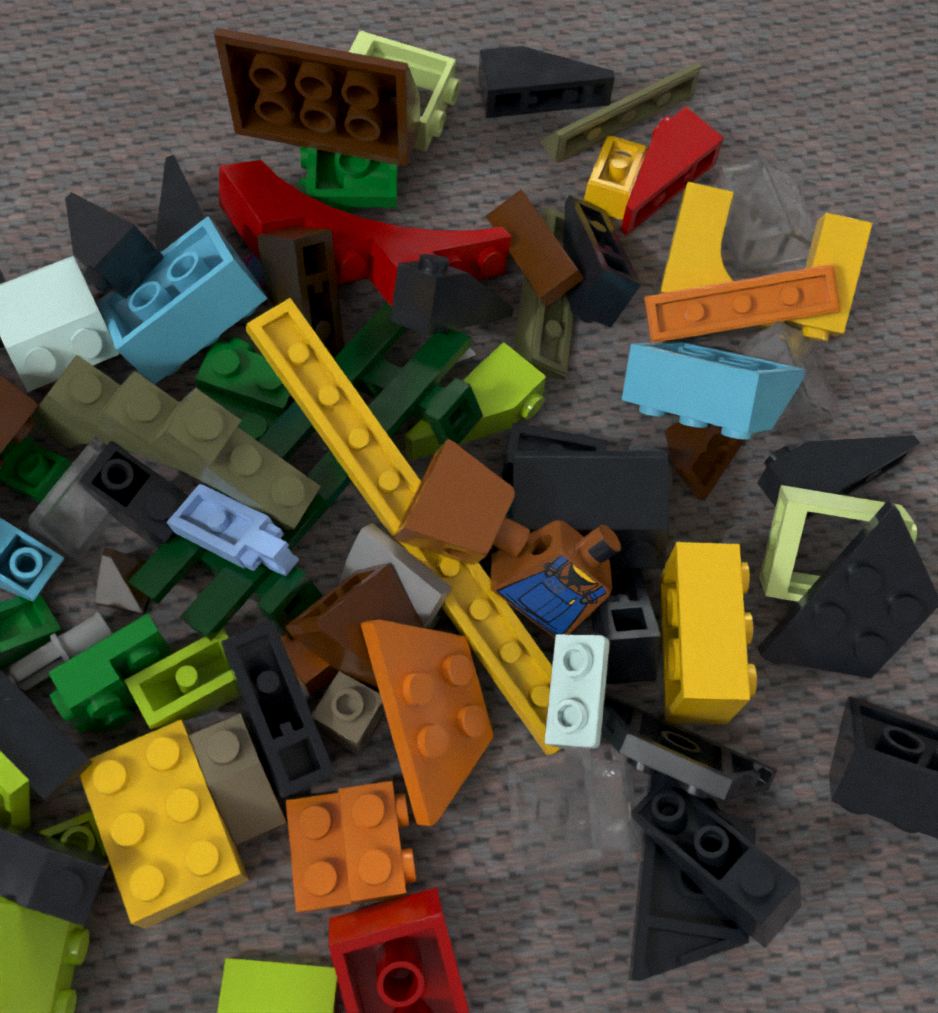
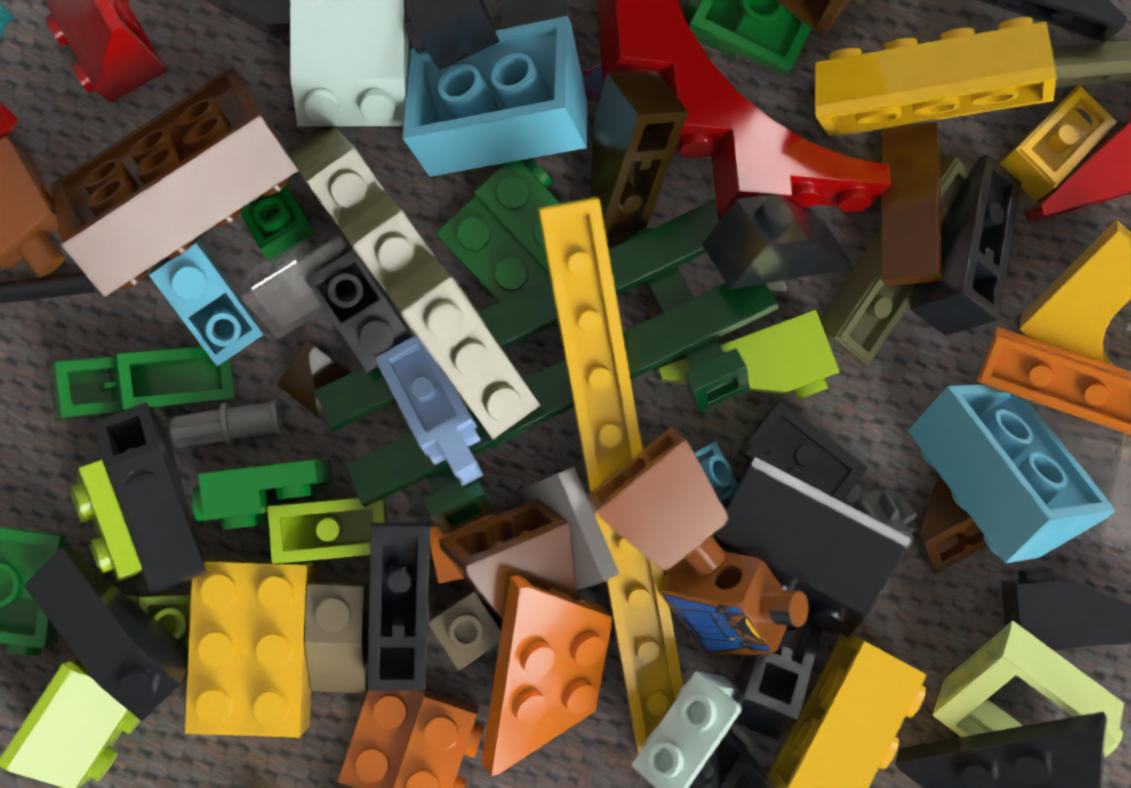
camera: 25 degrees right, 20 degrees up
(506, 155) = (936, 78): none -> yellow slope

